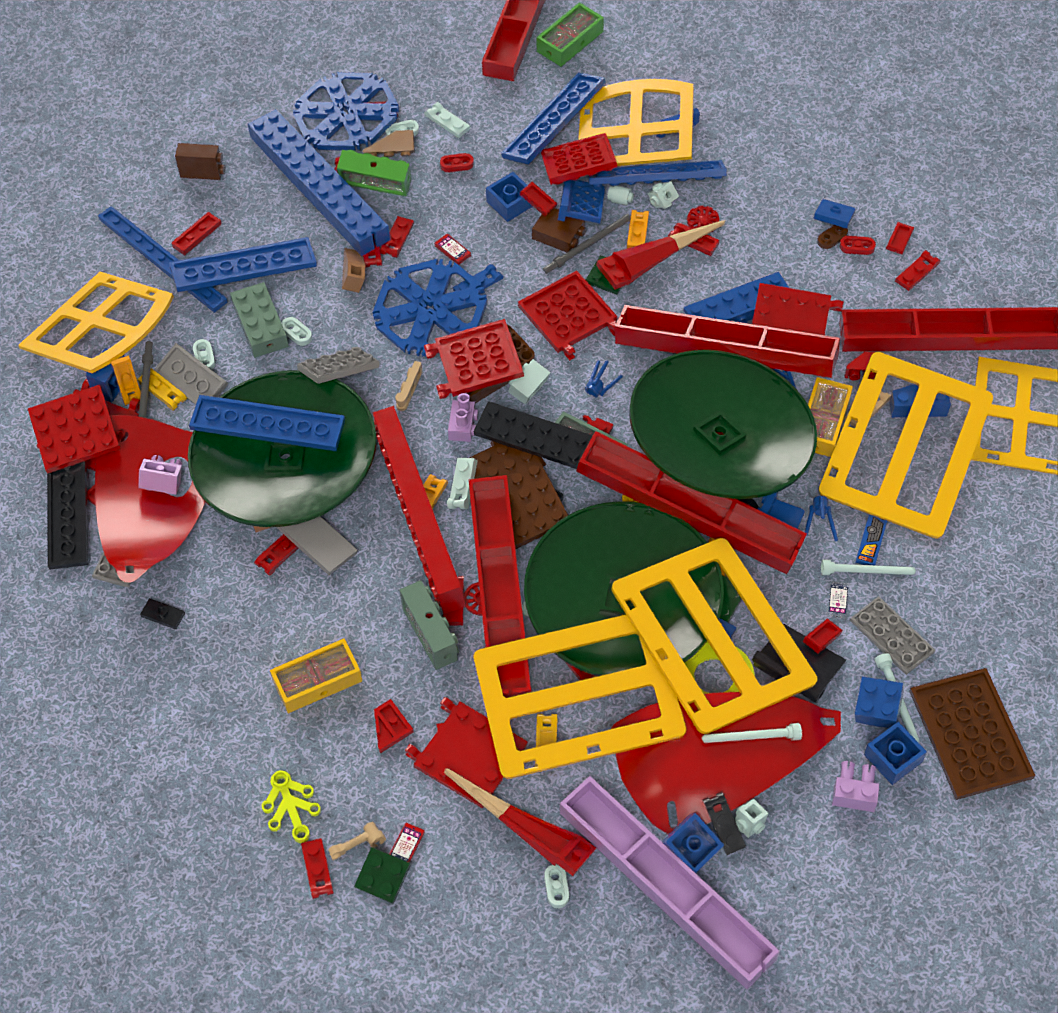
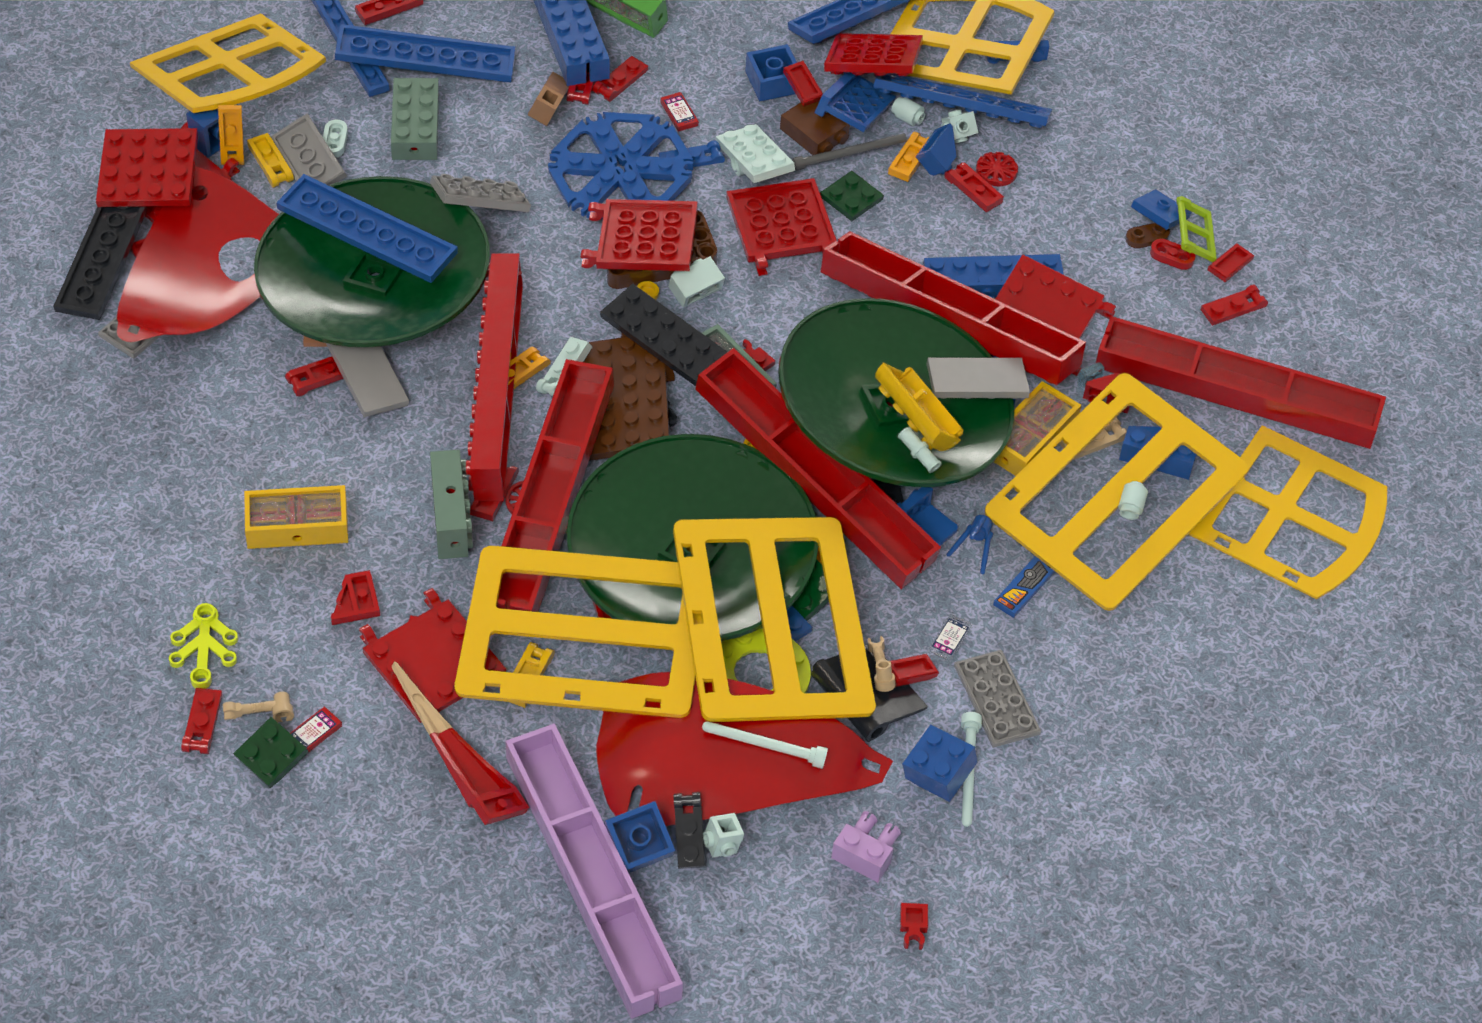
camera: 15 degrees right, 5 degrees down
(147, 360) = (266, 122): dark grey bar -> none
(160, 475) = (222, 248): lavender brick -> none
(162, 613) = (157, 398): black plate -> none
(299, 330) = (456, 148): light aqua plate -> none
(408, 387) = (554, 244): tan plate -> none
(455, 162) = (730, 17): red plate -> none
(462, 419) = (596, 296): lavender brick -> none
(495, 398) = (649, 288): none -> yellow tile
(525, 265) = (754, 154): none -> light aqua plate
(556, 887) = (463, 834): light aqua plate -> none
(595, 386) = (774, 312): blue plant -> none
(631, 263) = (886, 188): red plate -> none
(657, 219) = (938, 151): none -> blue slope
(748, 429) = (920, 406): none -> yellow container
(762, 464) = (919, 450): none -> light aqua pin
(775, 391) = (978, 378): none -> light grey tile
(810, 650) = (884, 677): none -> tan brick
(829, 567) = (958, 599): light aqua piece -> none
(844, 359) = (1089, 373): none -> clear light blue tile
(873, 220) = (1209, 254): none -> lime window
(895, 753) = (931, 824): blue brick -> none
(915, 833) = (914, 922): none -> red plate
(924, 448) = (1132, 500): none -> light aqua brick
(971, 733) = (1038, 836): reddish brown plate -> none

